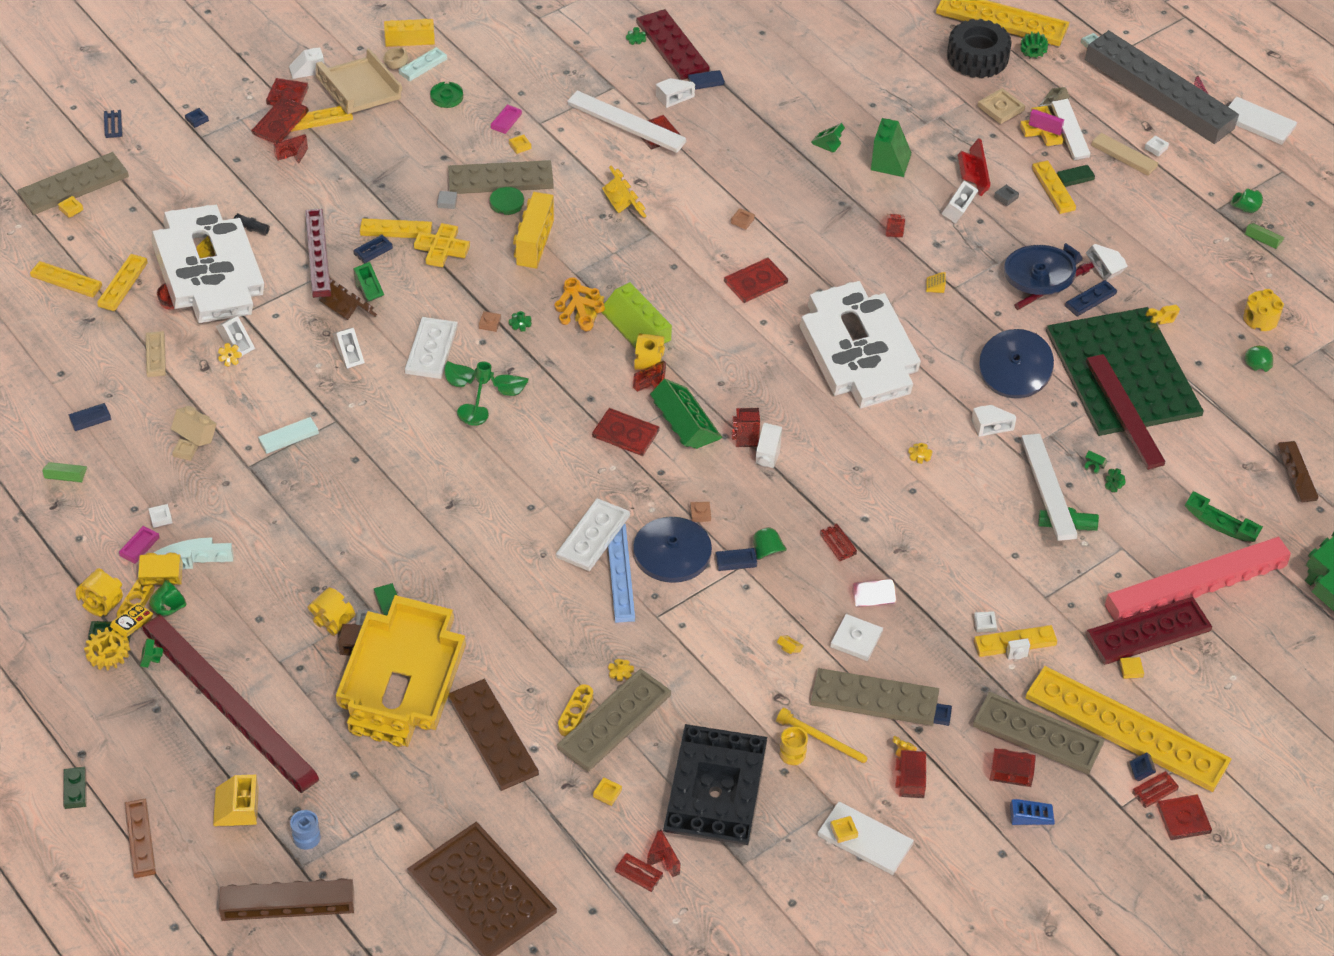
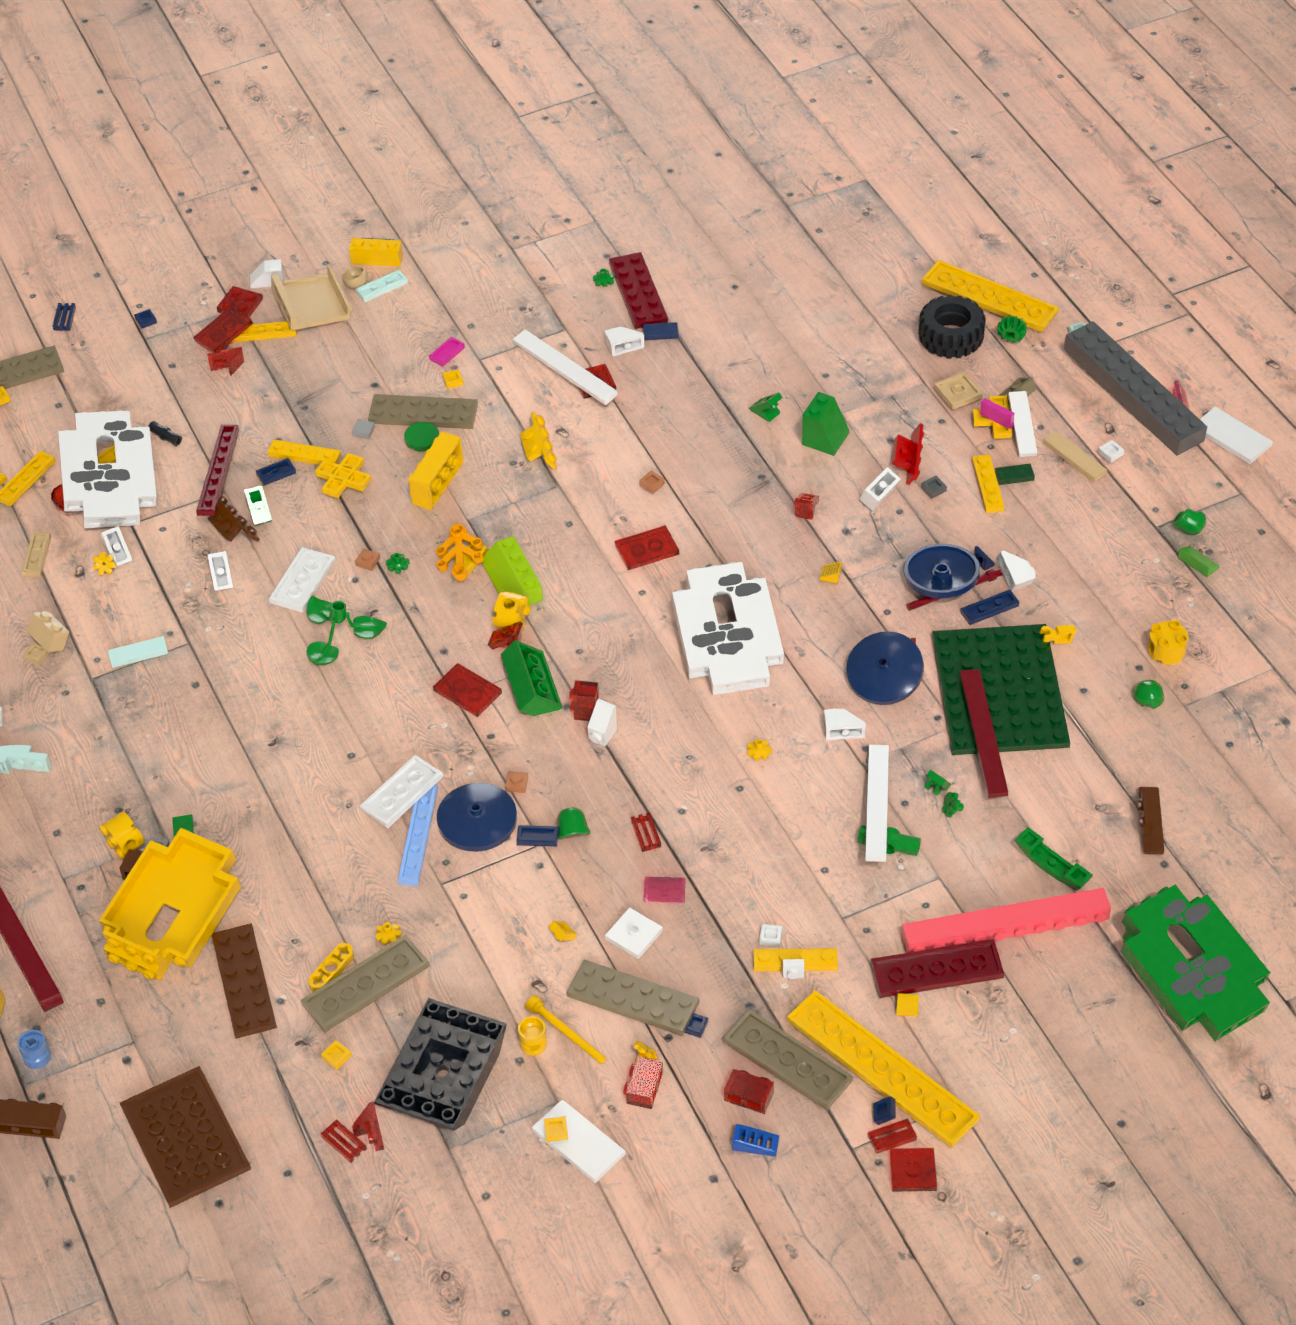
camera: 15 degrees right, 0 degrees up
(446, 94) = (395, 320): green tile -> none

